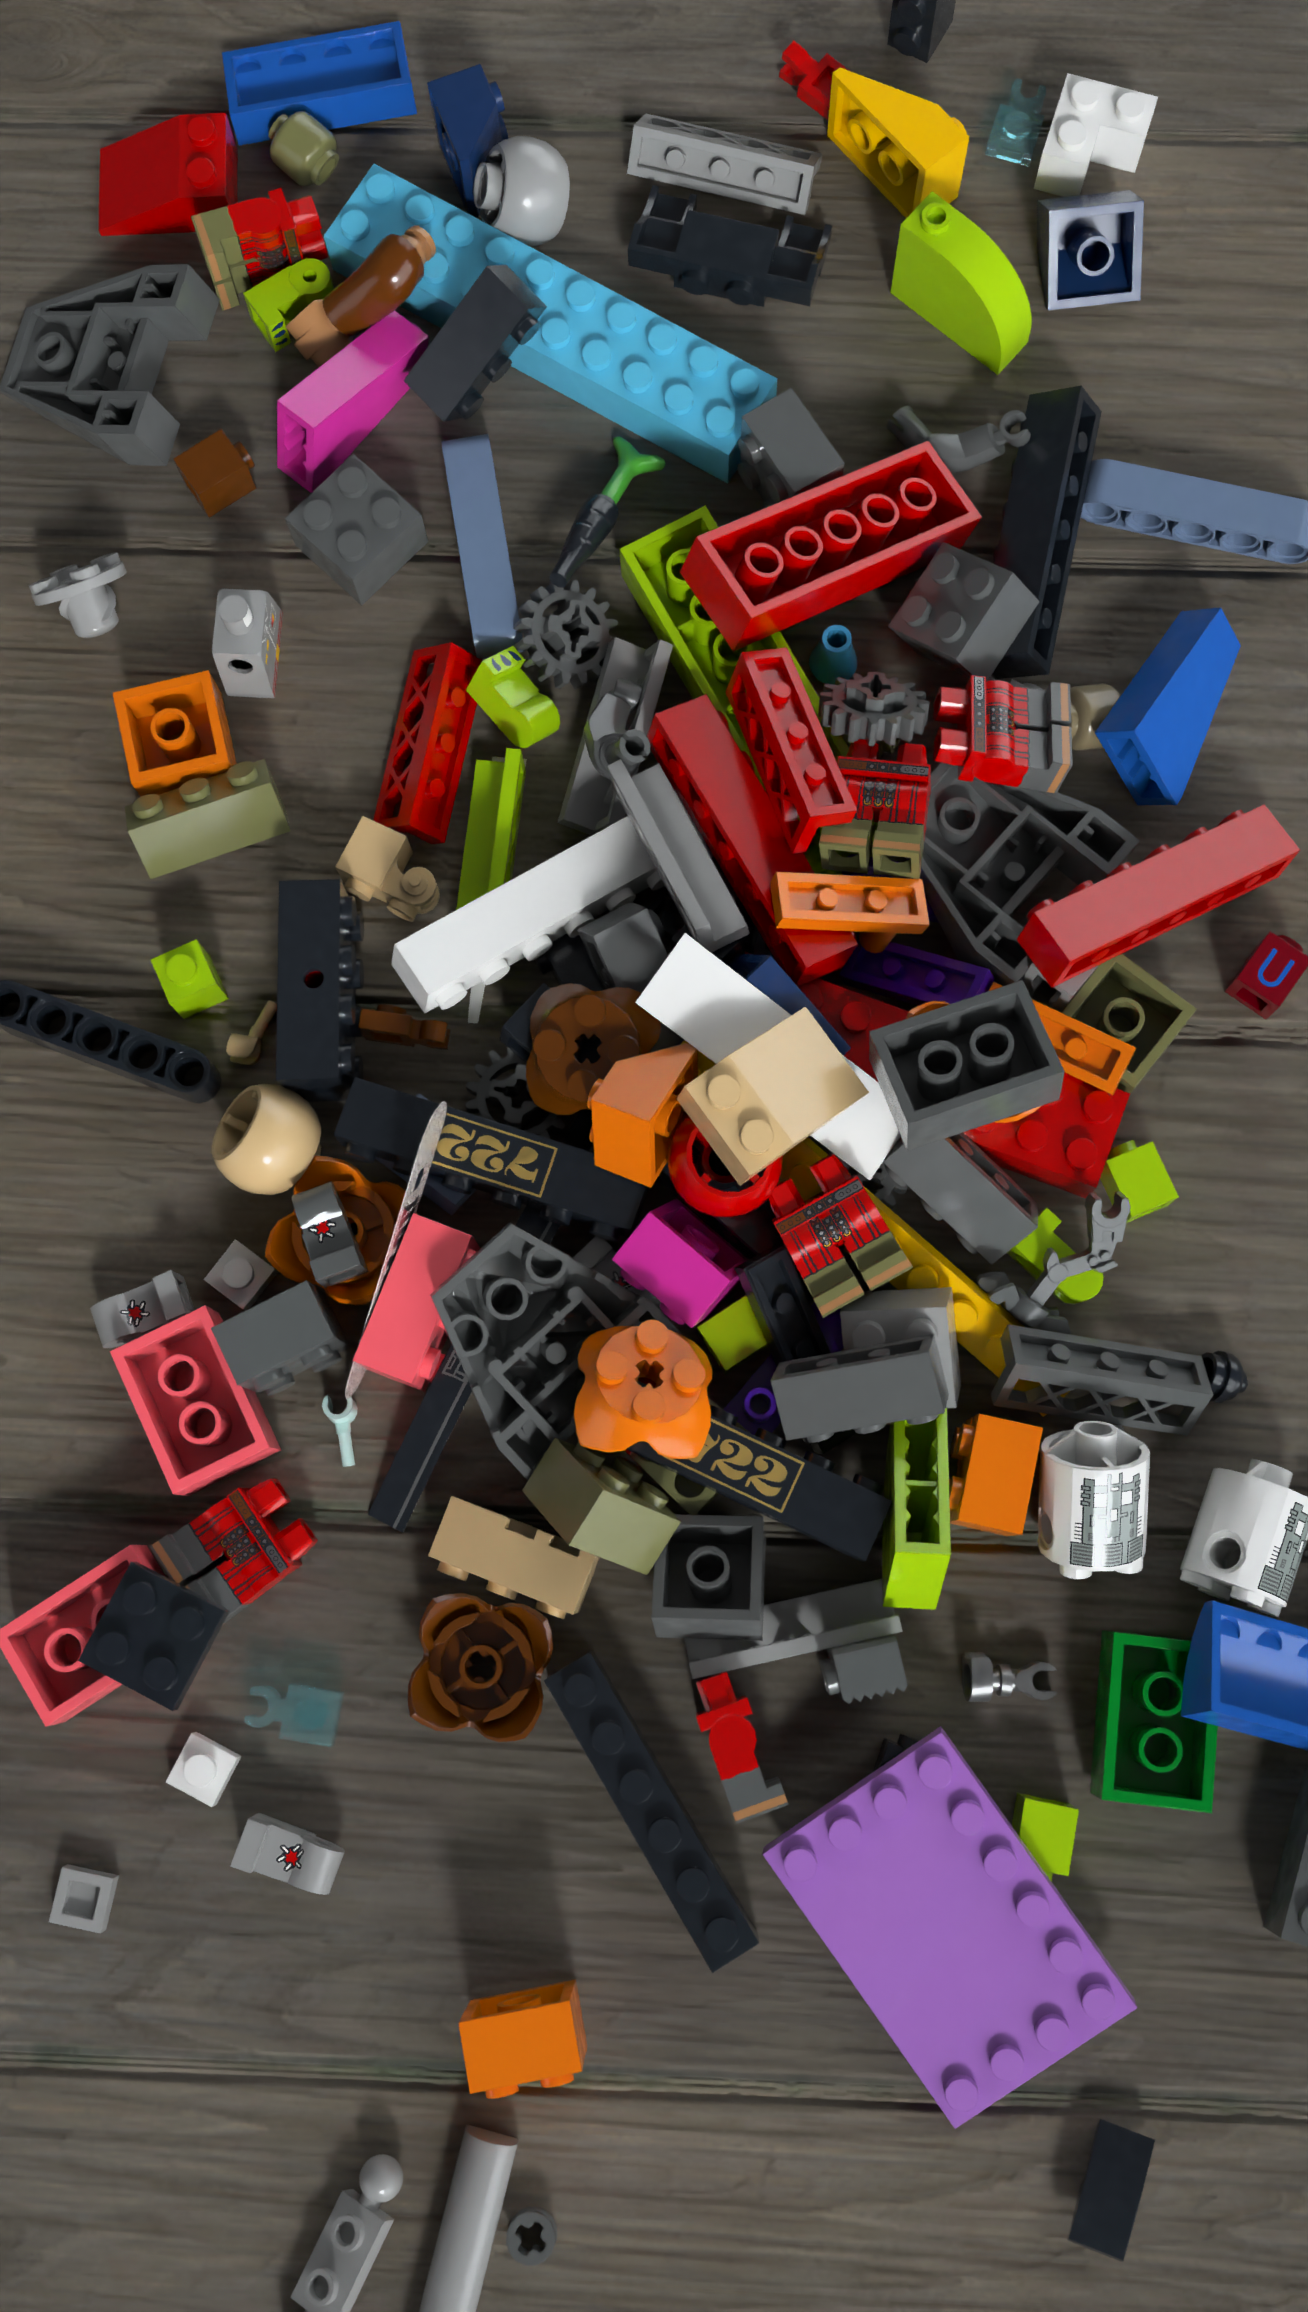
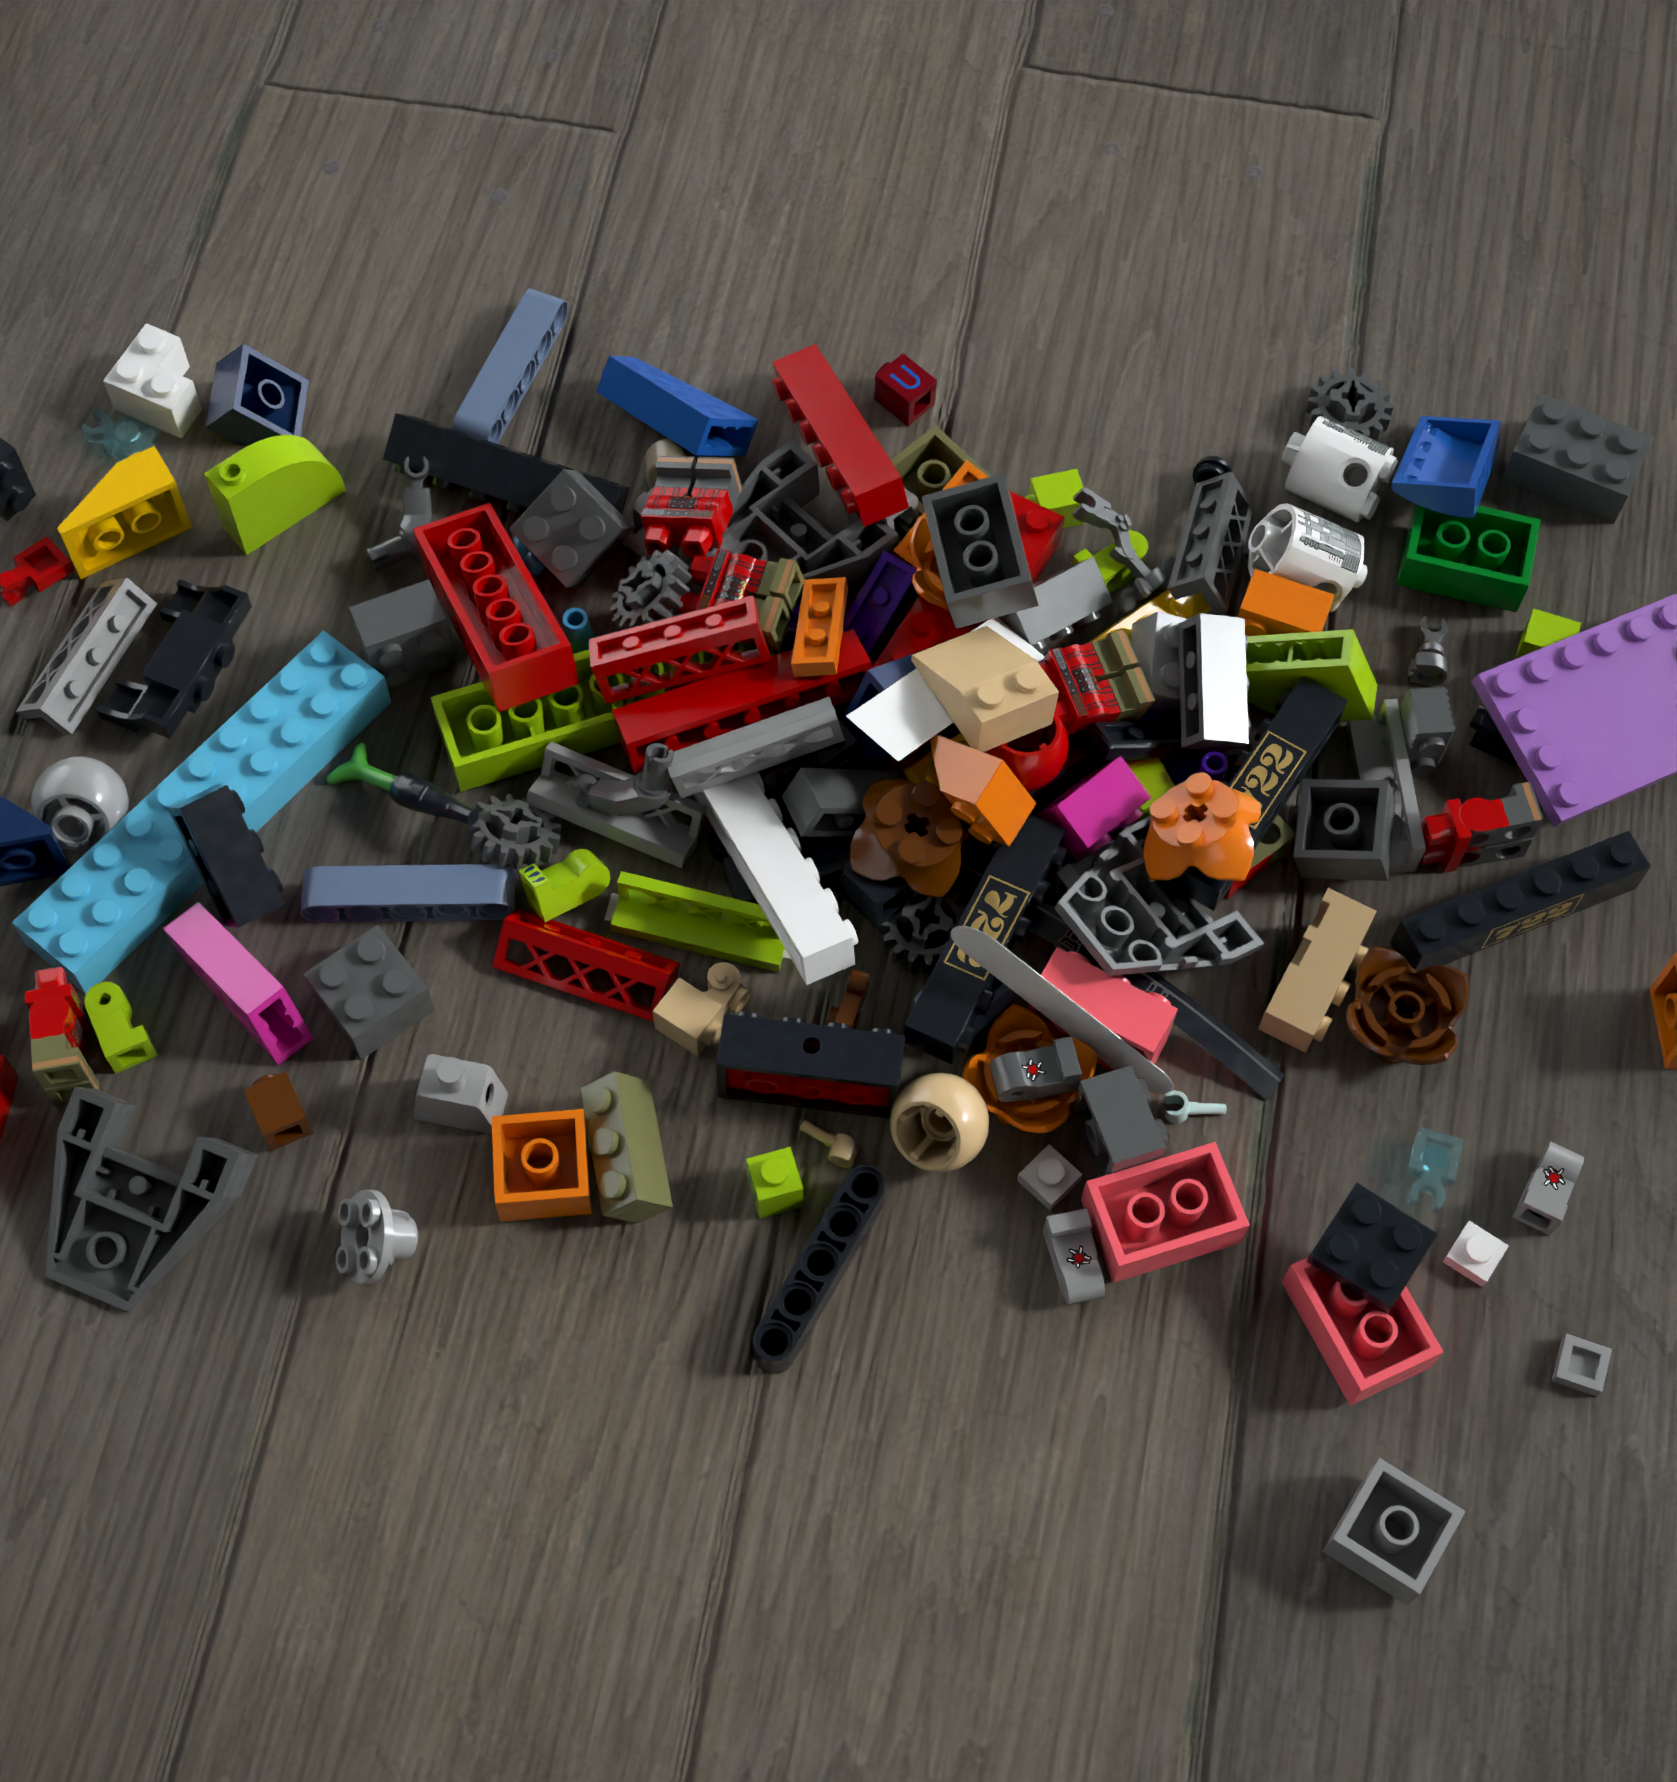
camera: 90 degrees left, 15 degrees down
(244, 1535) = (1290, 1199): hips -> none
(364, 297) = (155, 942): reddish brown piece -> none
(602, 1505) = (1284, 888): olive brick -> none

